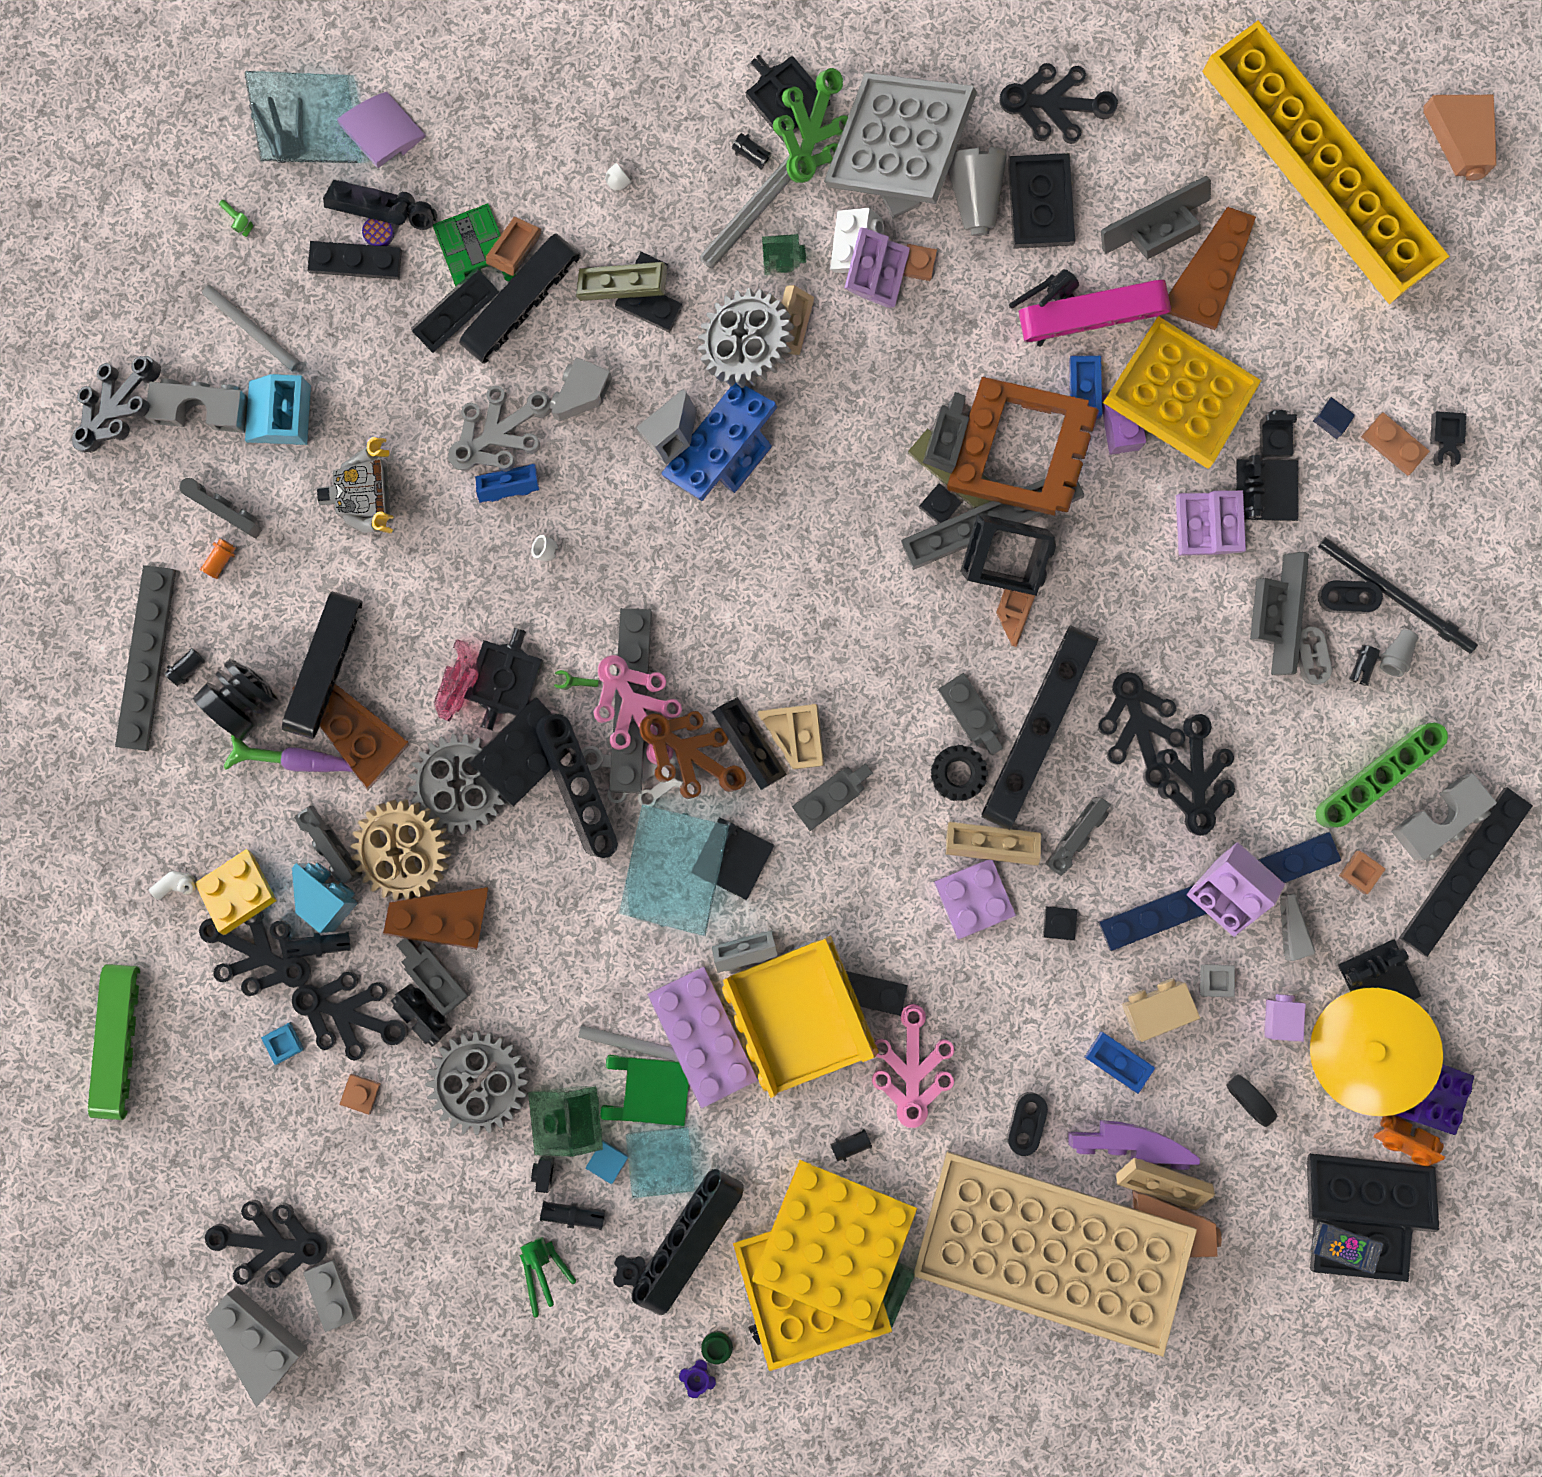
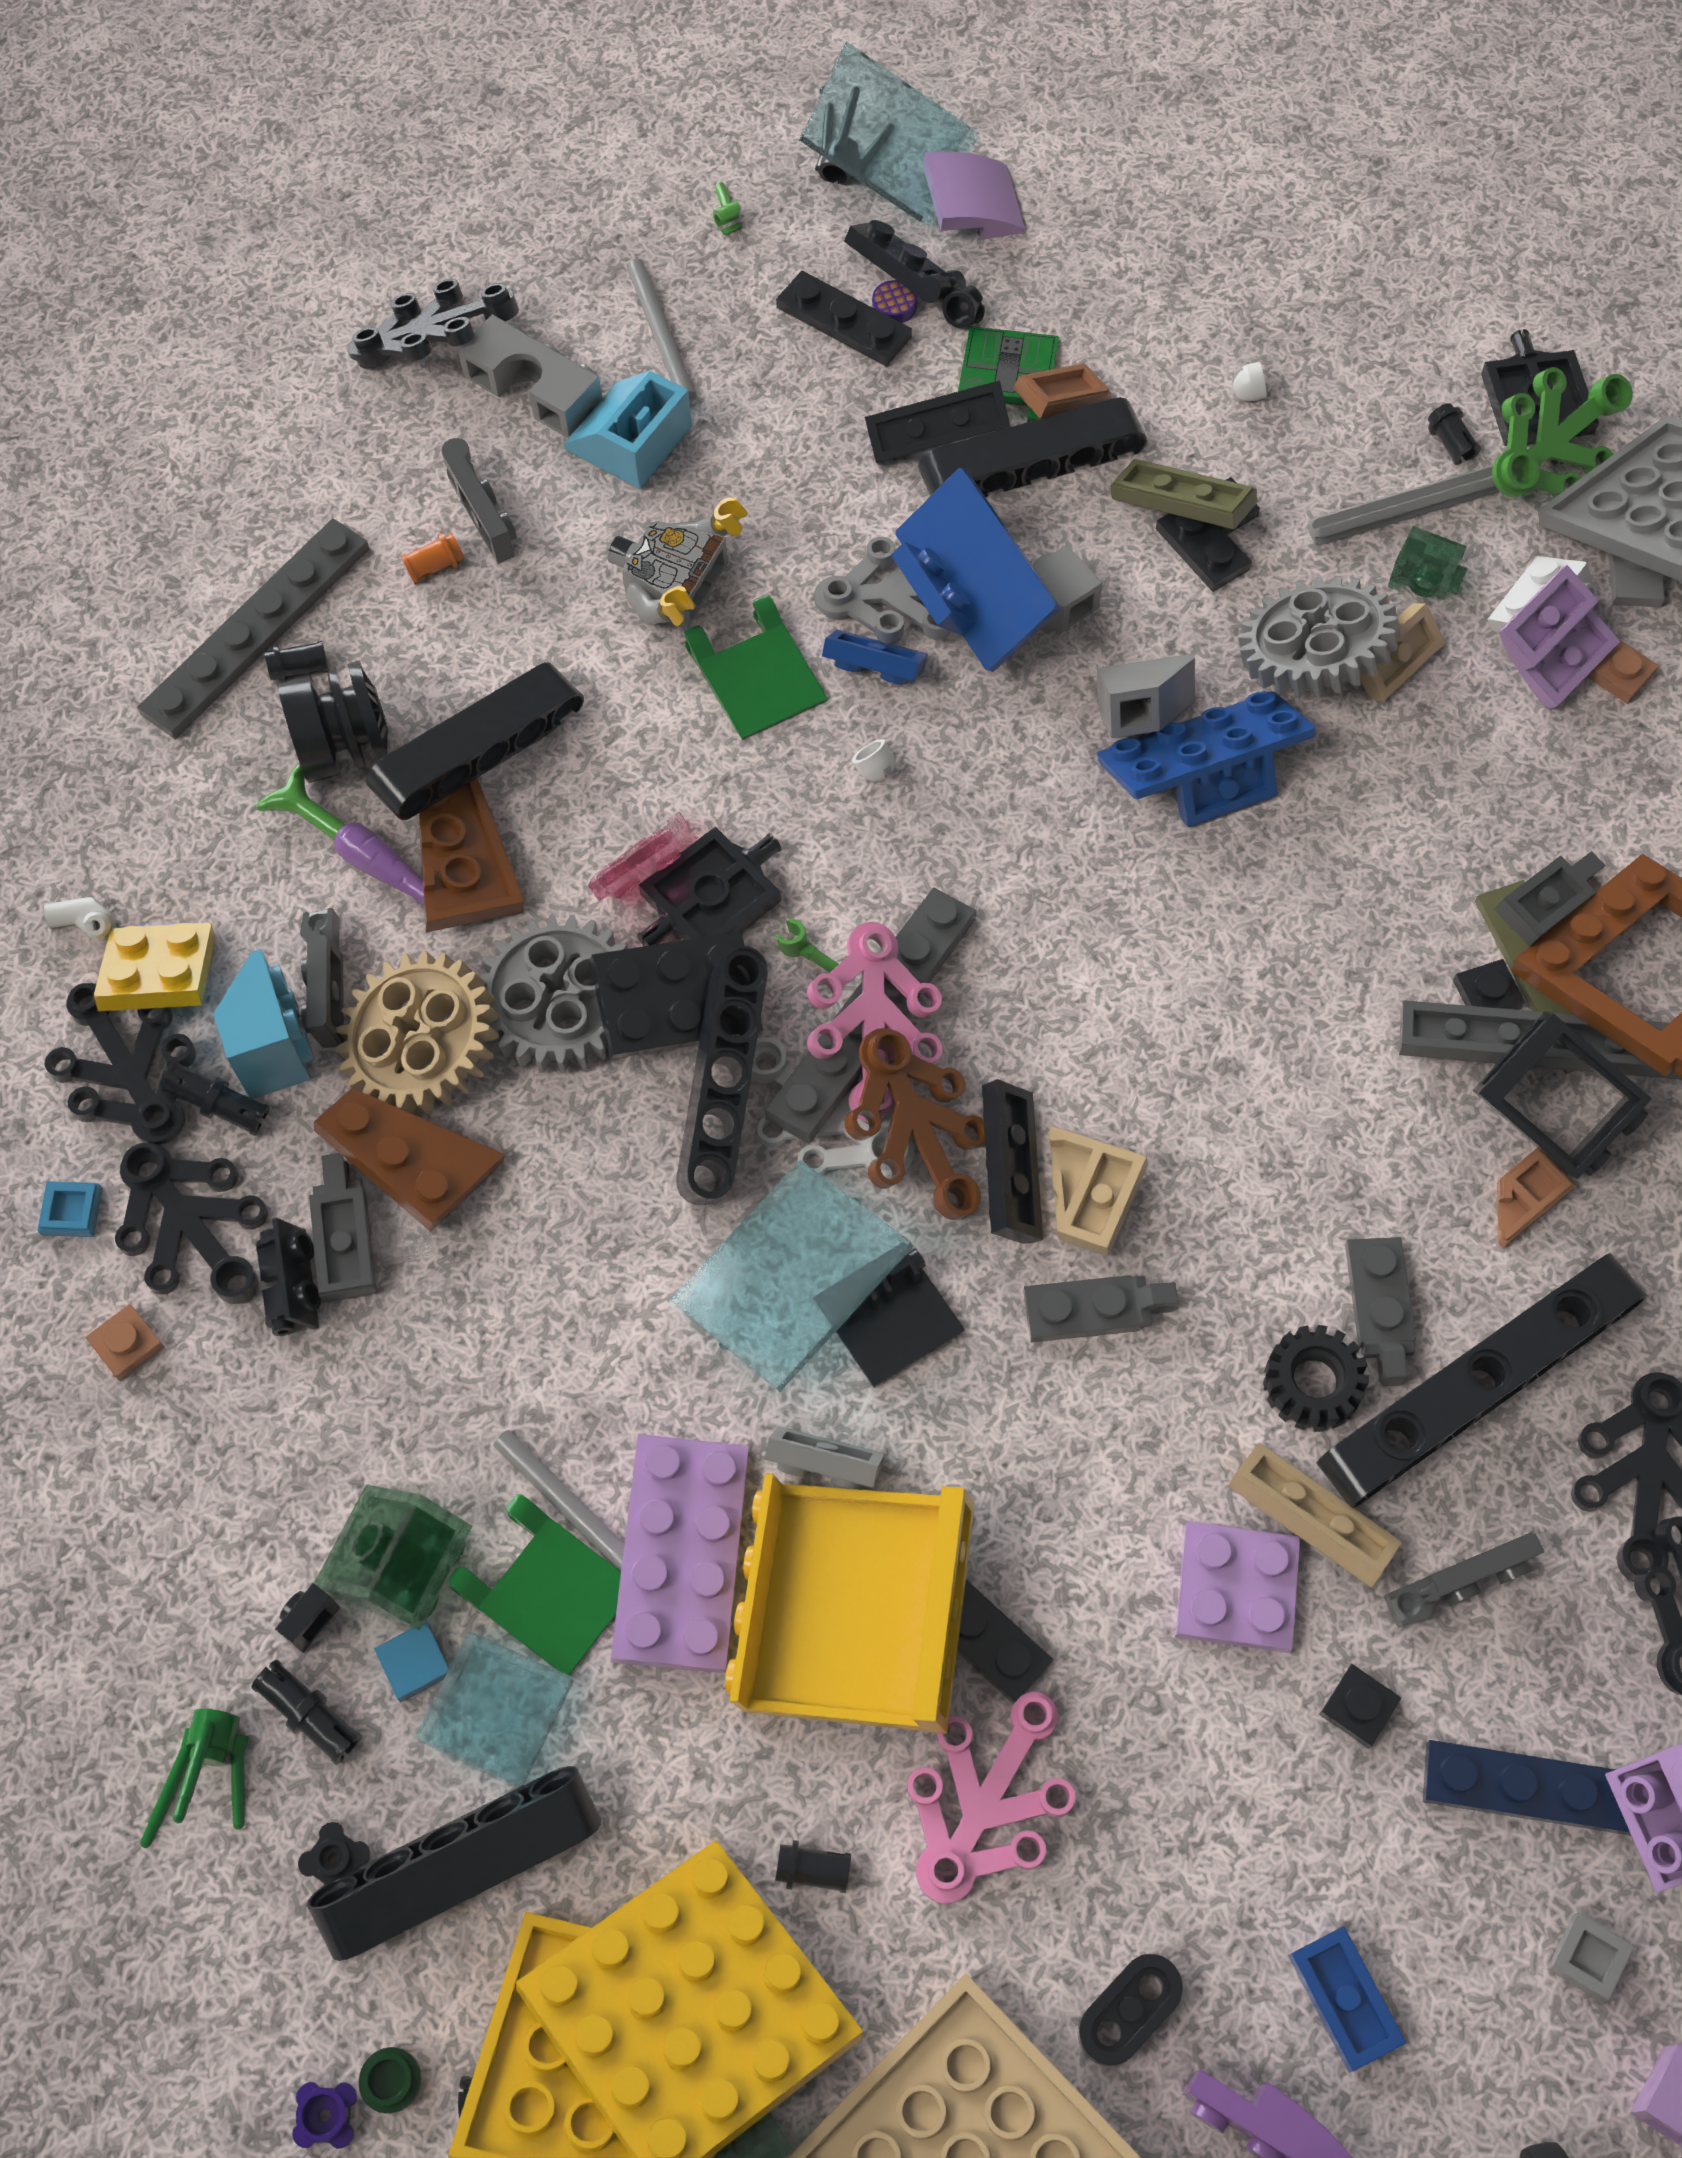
camera: 30 degrees right, 20 degrees down
(450, 530) = (760, 677): none -> green flag
(457, 1063) = (309, 1467): light grey gear -> none
(533, 408) = (972, 571): none -> blue bracket
(1160, 1010) = (1464, 1944): tan brick -> none

